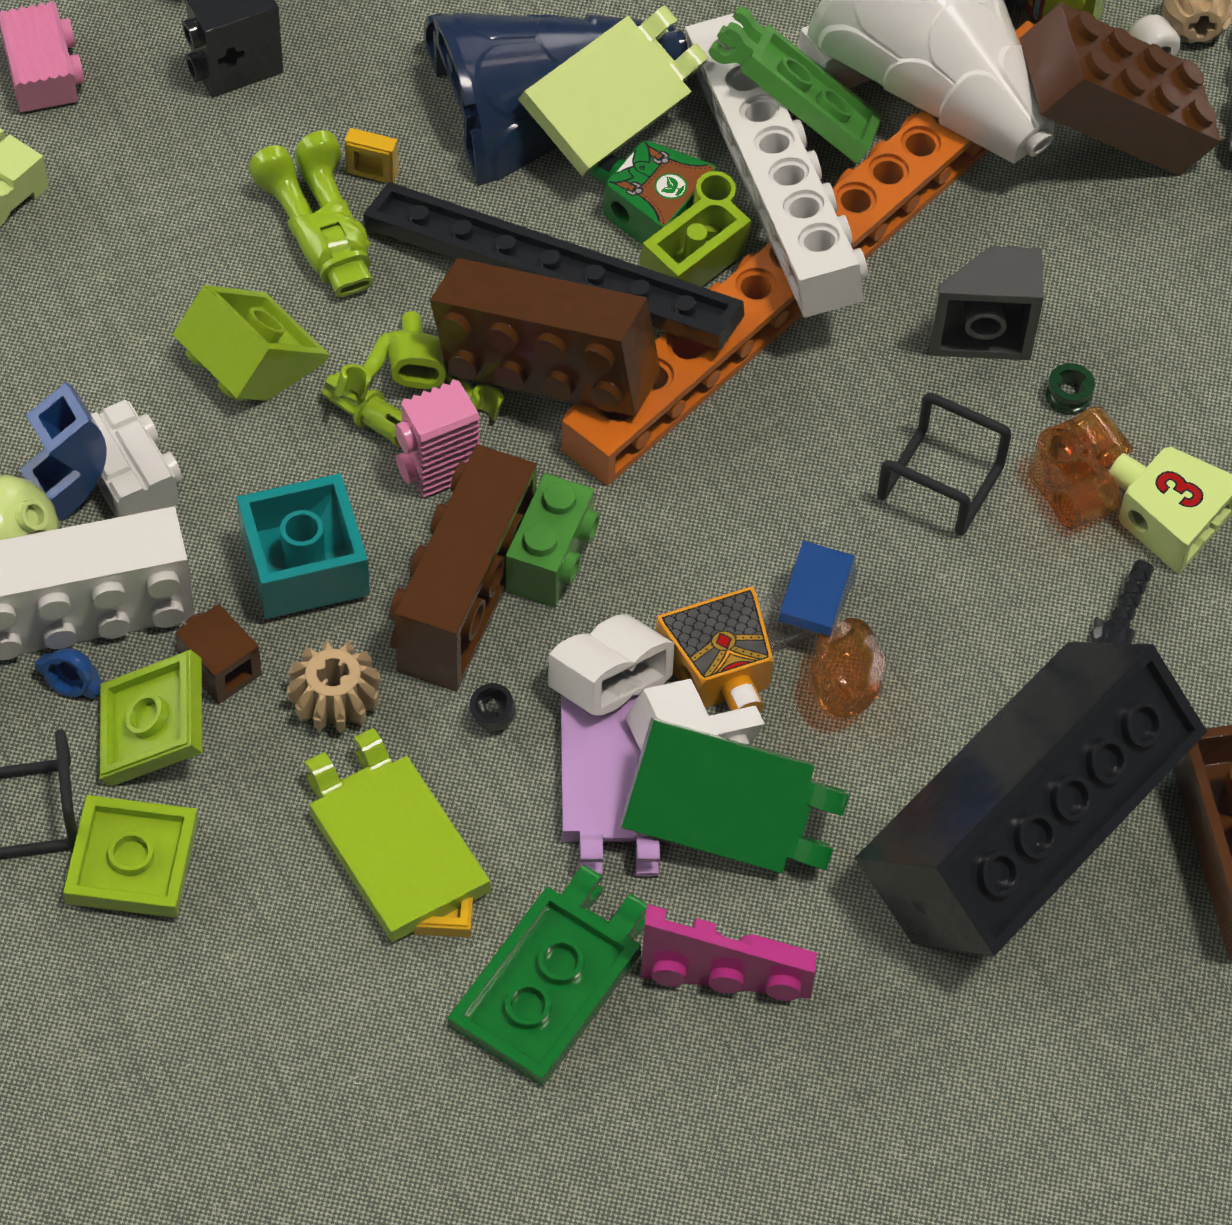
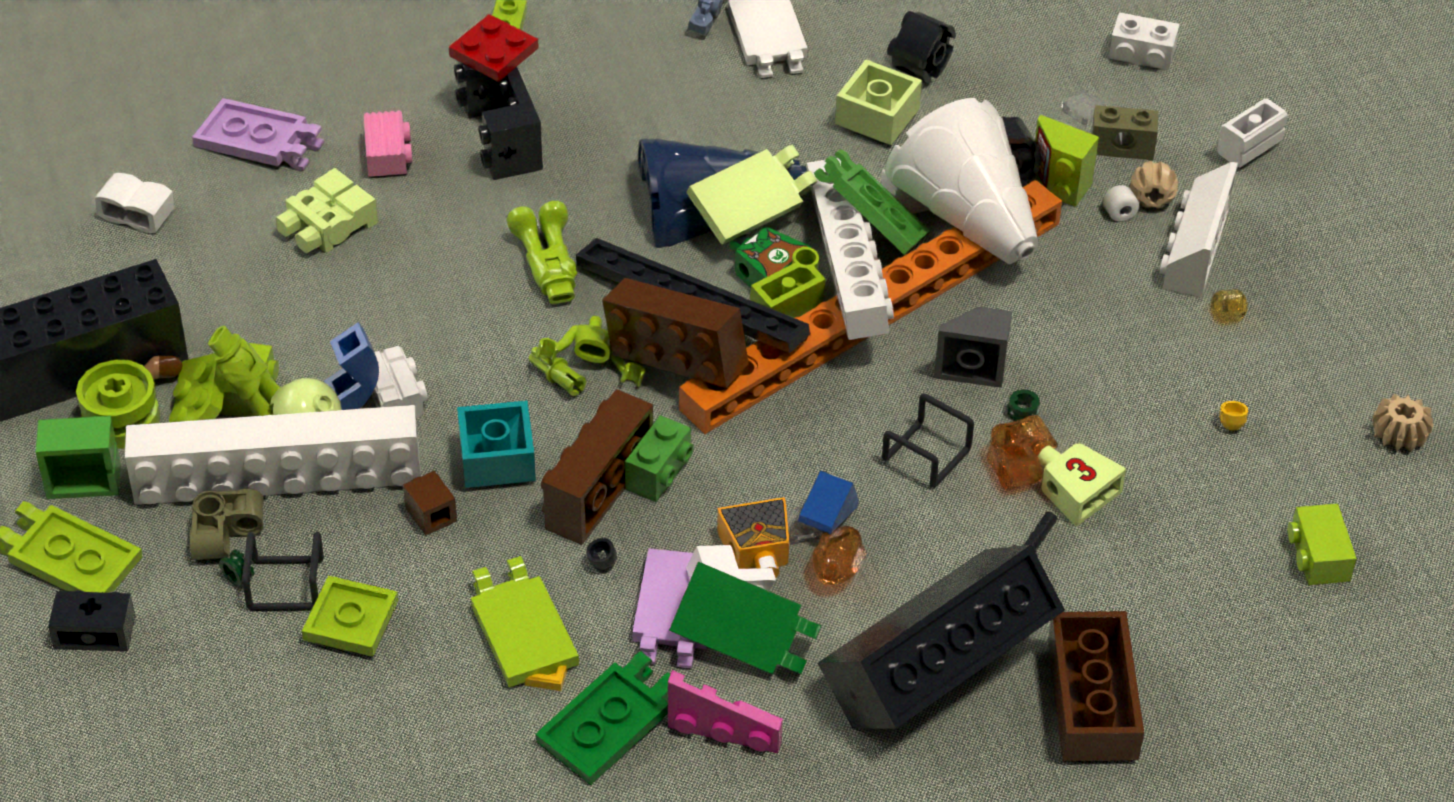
camera: 10 degrees right, 10 degrees down
(69, 673) = (333, 505): blue piece -> none
(151, 718) = (378, 534): lime plate -> none
(247, 342) = (485, 322): lime slope -> none
(333, 686) = (500, 530): tan gear -> none
(371, 155) = (588, 221): yellow tile -> none
(436, 436) = (592, 382): bright pink brick -> none
(610, 664) = (678, 534): white brick -> none
(1119, 89) = (1085, 223): reddish brown brick -> none

